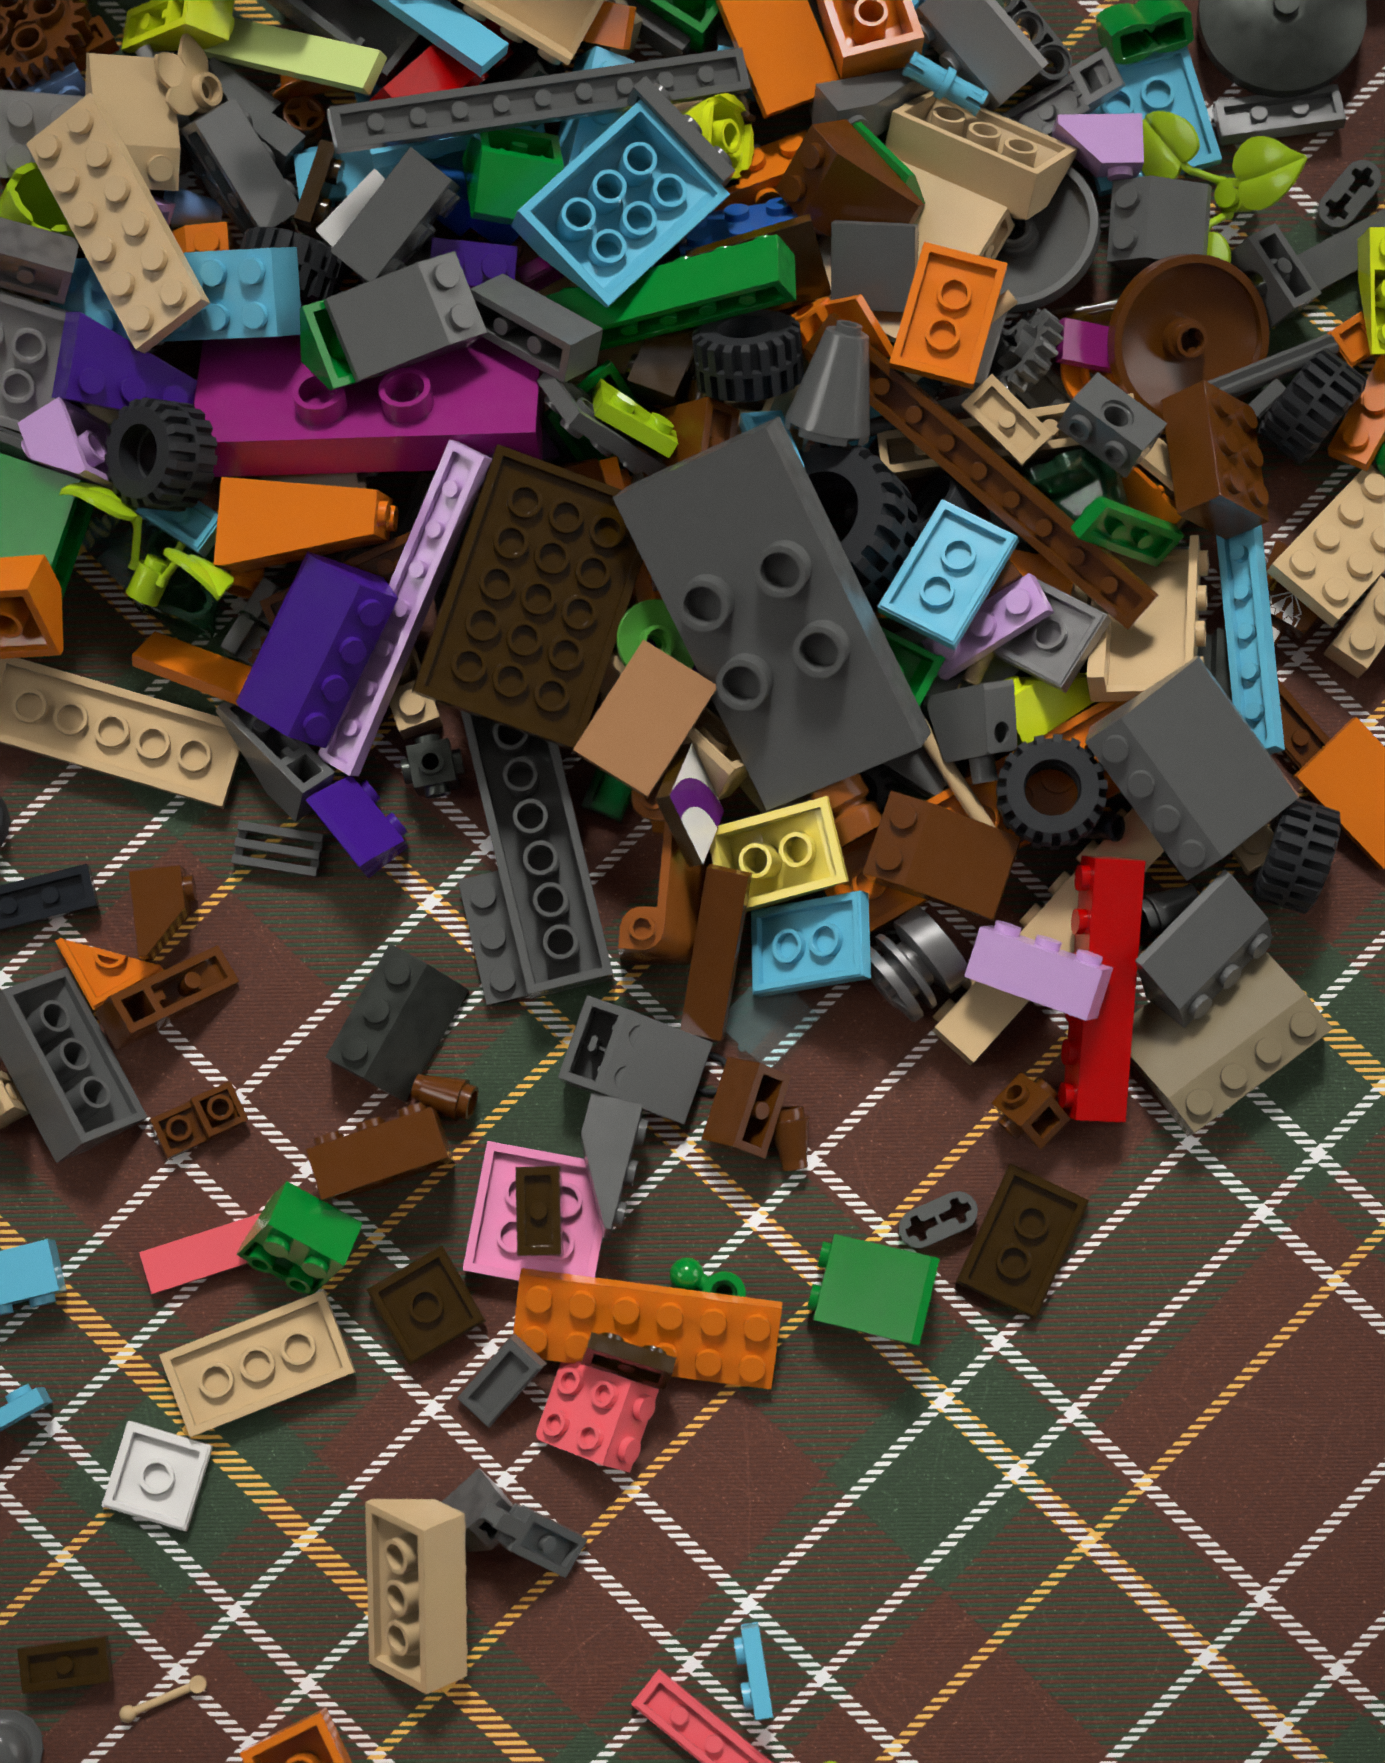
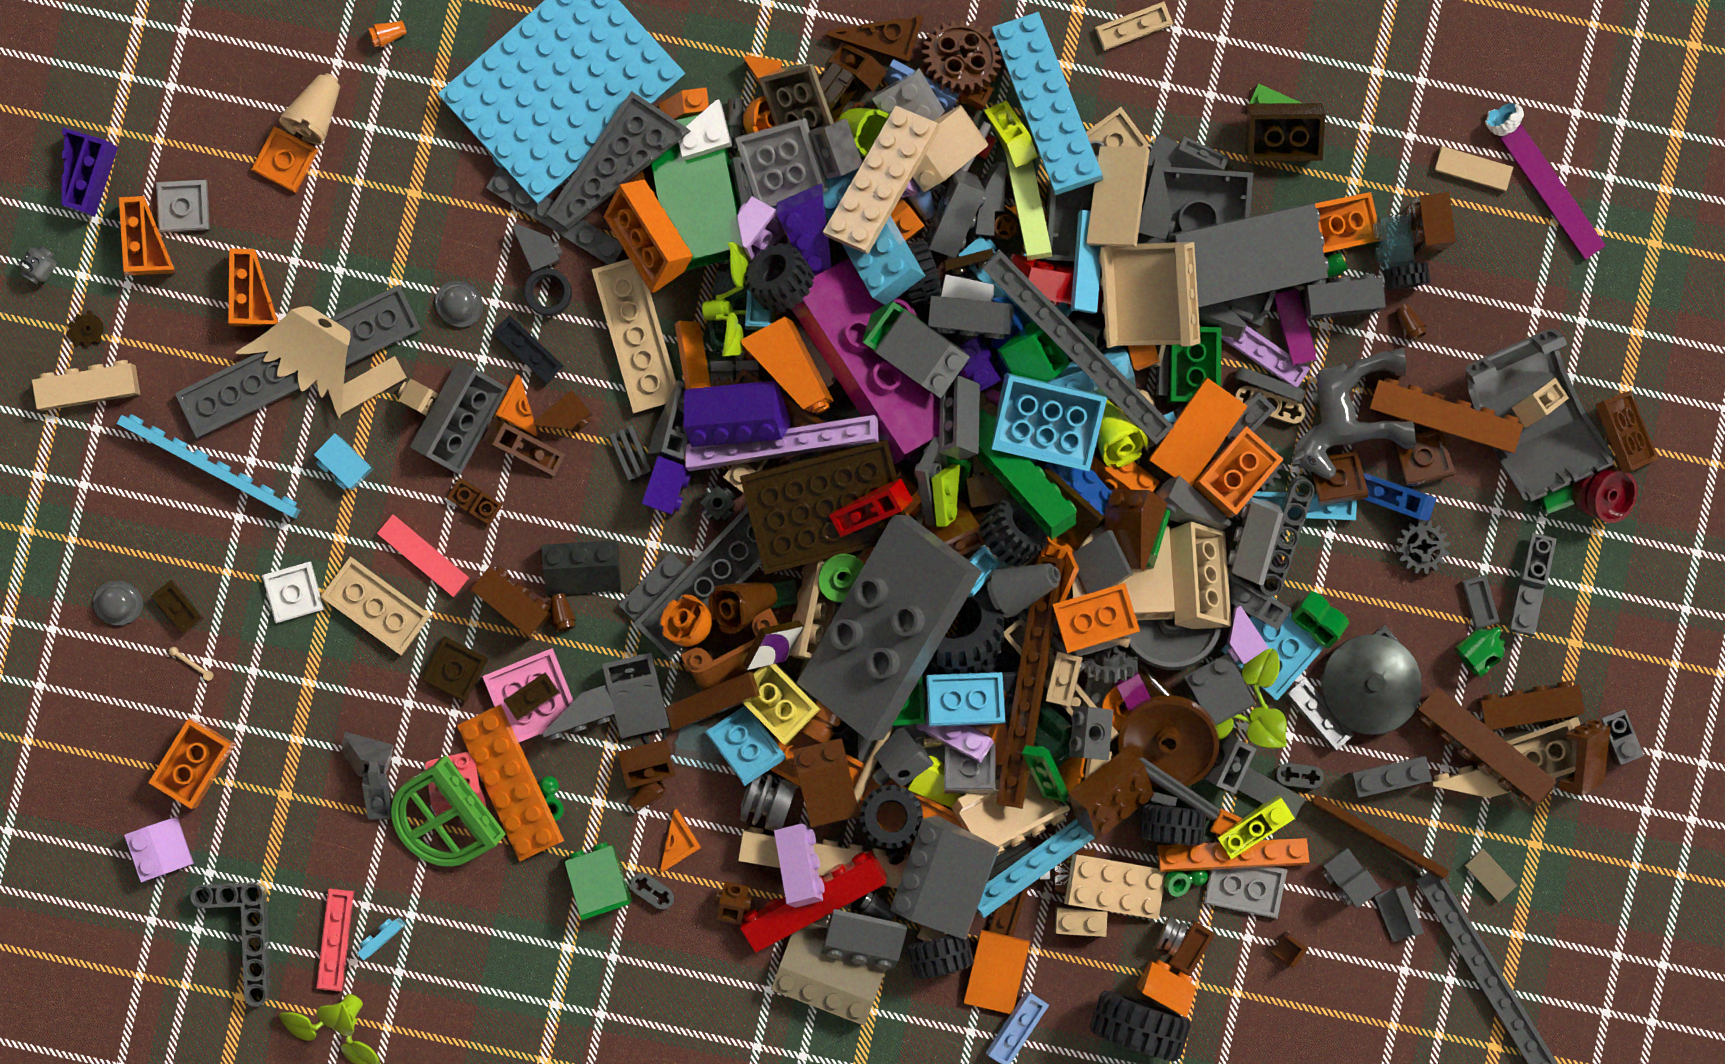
camera: 50 degrees right, 5 degrees up
(188, 79) = (983, 160): tan plate -> none
(300, 1239) = (446, 589): green slope -> none
(417, 1591) = (315, 753): tan slope -> none
(501, 1380) = (441, 729): dark grey tile -> none
(574, 908) = (686, 621): none -> orange cylinder
(582, 529) = (871, 507): none -> red slope
(597, 823) = (740, 603): none -> reddish brown cone
(634, 1413) = (463, 803): none -> bright green window
(642, 1364) = (490, 791): dark brown plate -> none
(645, 719) = (798, 597): medium nougat tile -> none
(684, 128) = (1107, 427): dark grey plate -> none
(890, 1134) = (679, 842): none -> orange tile
(944, 83) = (1222, 538): medium azure pin -> none
(1022, 1241) = (668, 938): dark brown tile -> none

